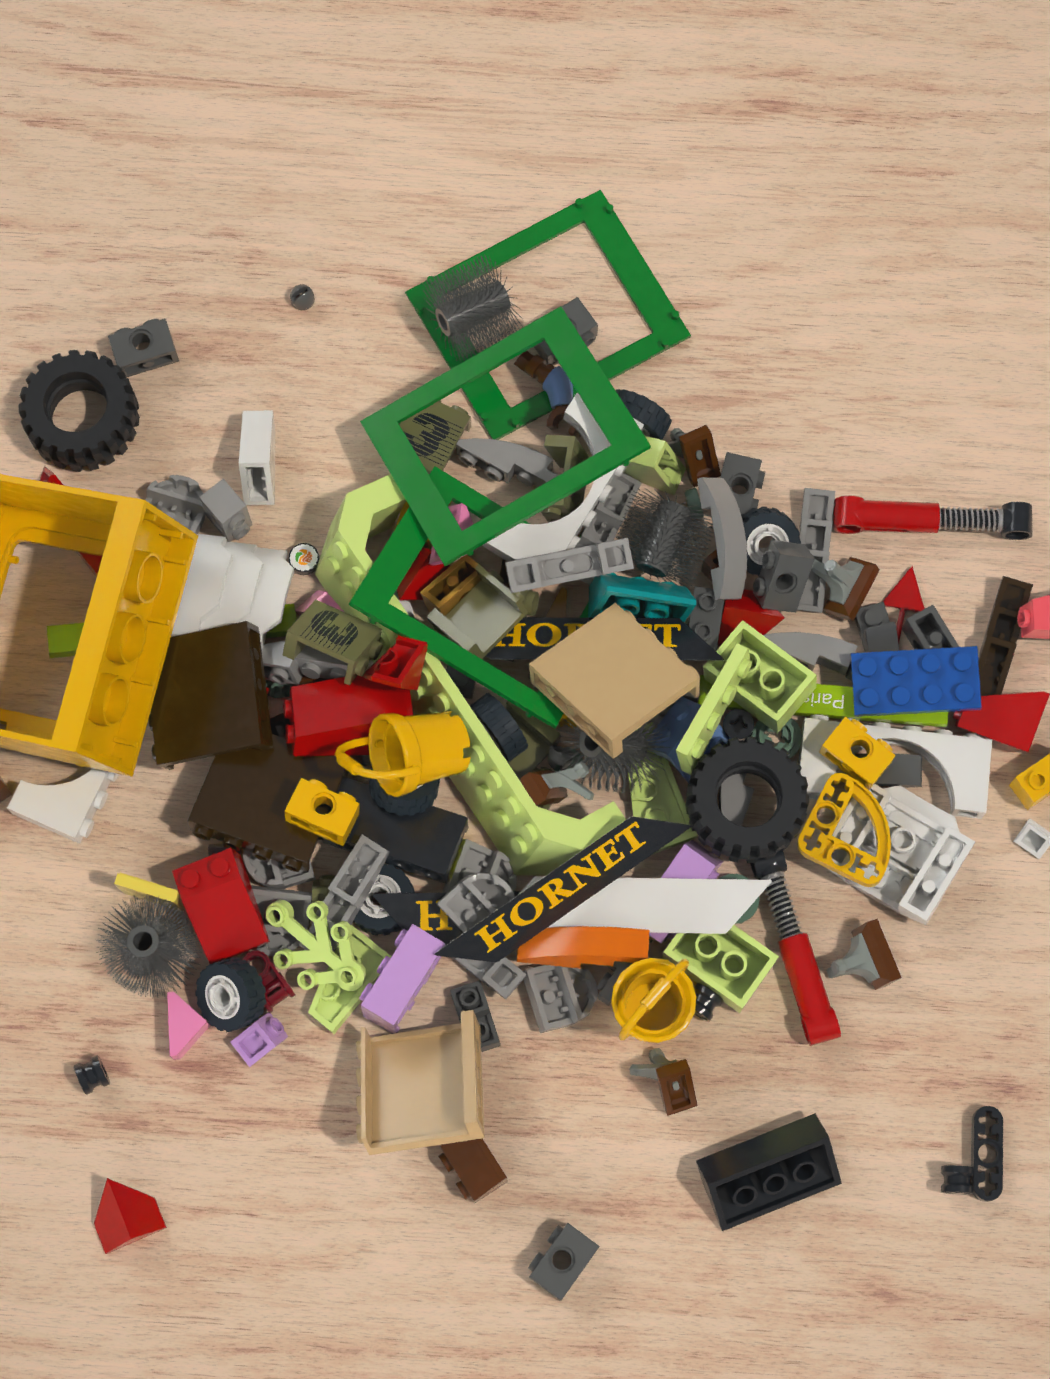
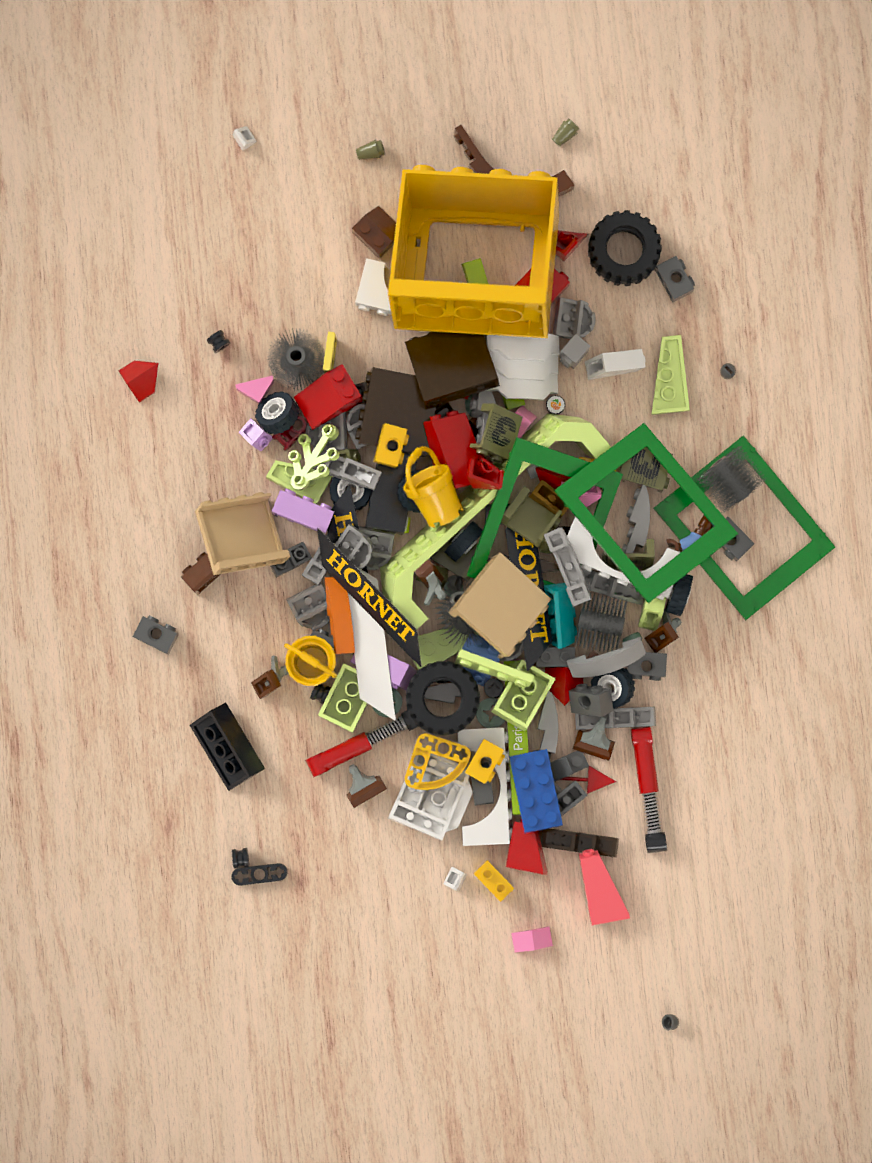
camera: 75 degrees right, 10 degrees up
(301, 380) = (671, 383): none -> yellowish green wing

